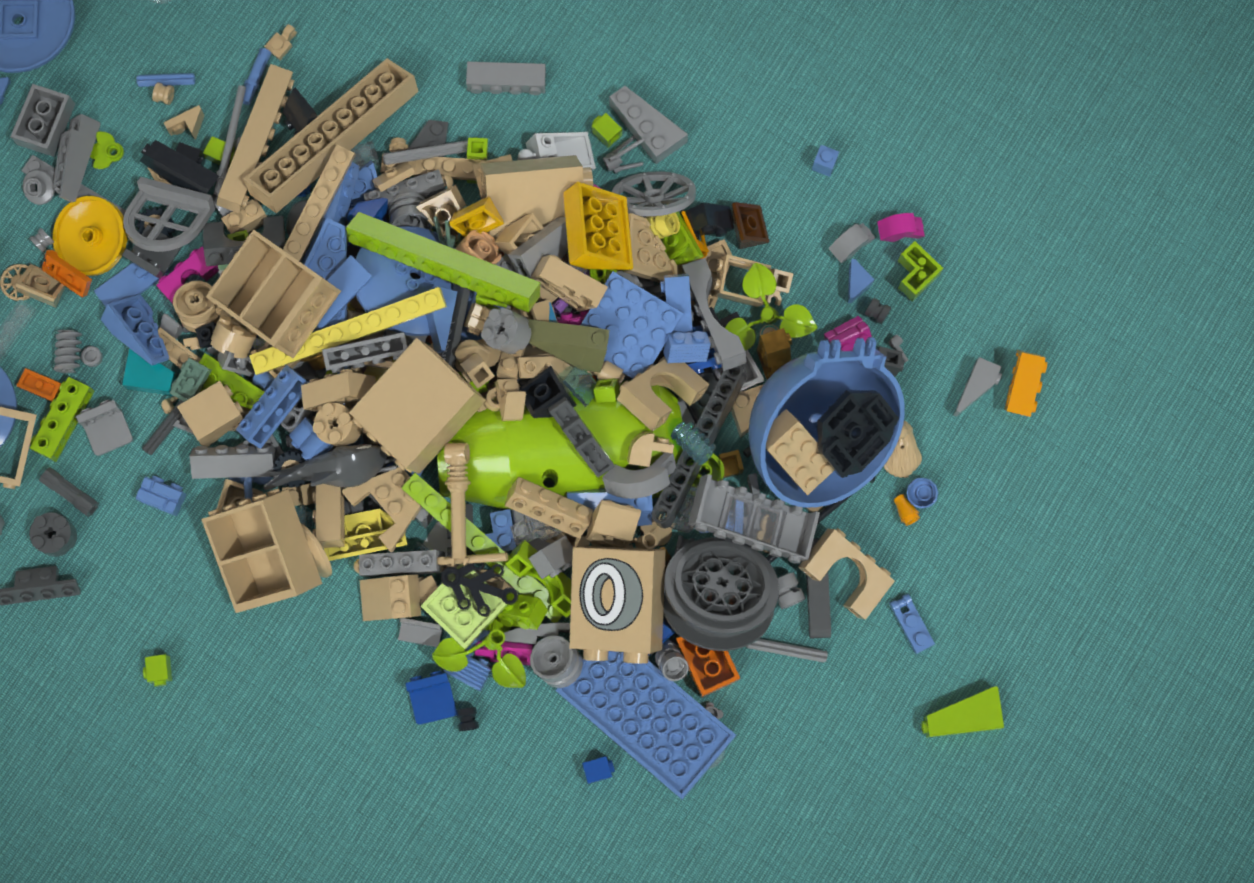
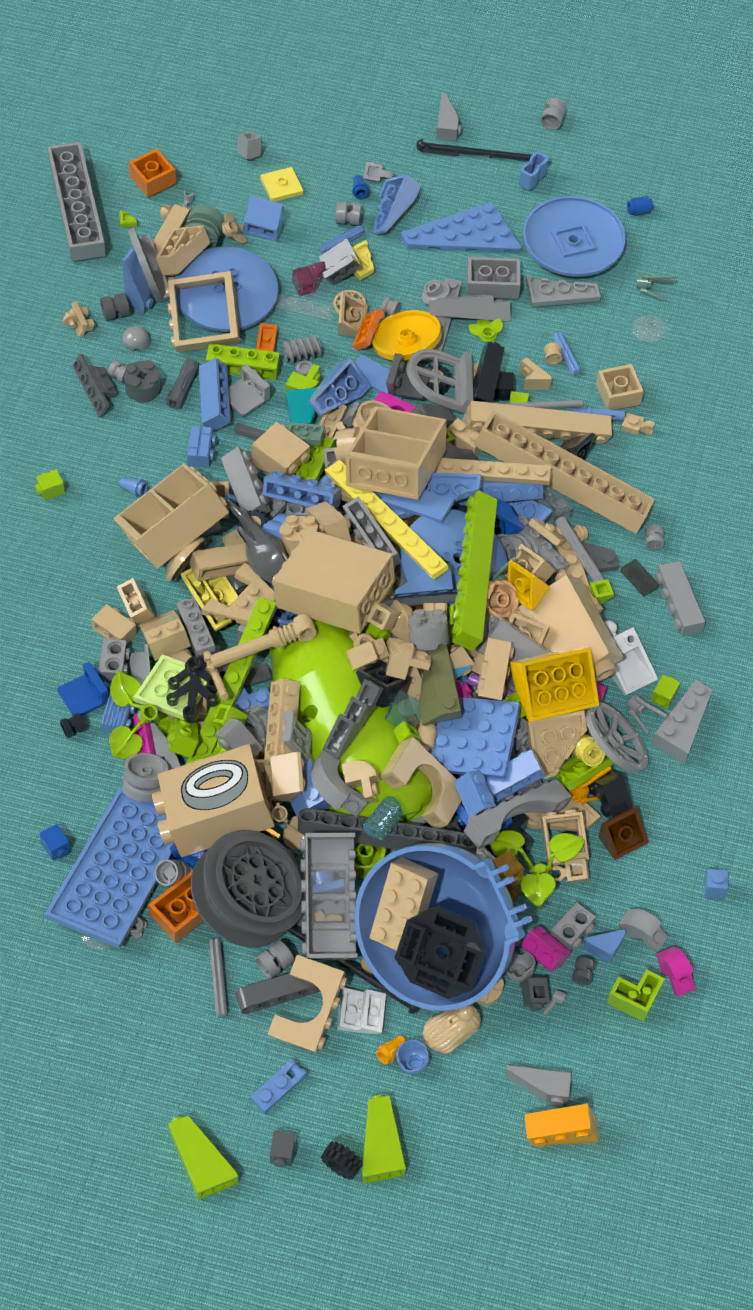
camera: 70 degrees right, 20 degrees down
(29, 555) = (117, 370): none -> light grey wheel
(83, 58) = (557, 293): none -> light grey wing
(98, 462) = (214, 394): none -> medium blue brick
(115, 366) = (299, 381): none -> lime brick
(189, 579) = (135, 486): none -> medium blue cone
(233, 42) = (619, 387): none -> tan brick
(340, 616) = (135, 601): none -> tan brick
(361, 646) = (113, 624): none -> tan brick
(401, 662) = (113, 661): none -> light grey brick
(427, 75) = (654, 537): none -> light grey wheel
(468, 107) = (639, 578): none -> clear smoke plate
(535, 365) = (403, 657): none -> tan brick
(583, 499) = (296, 736): none -> light grey plate
(827, 307) = (569, 926): none -> light grey brick
(860, 524) = (361, 1011): none -> white slope
(977, 638) = (282, 1149): none -> dark grey brick
(996, 547) = (382, 1146): none -> lime slope
(1006, 588) = (341, 1160): none -> black tyre

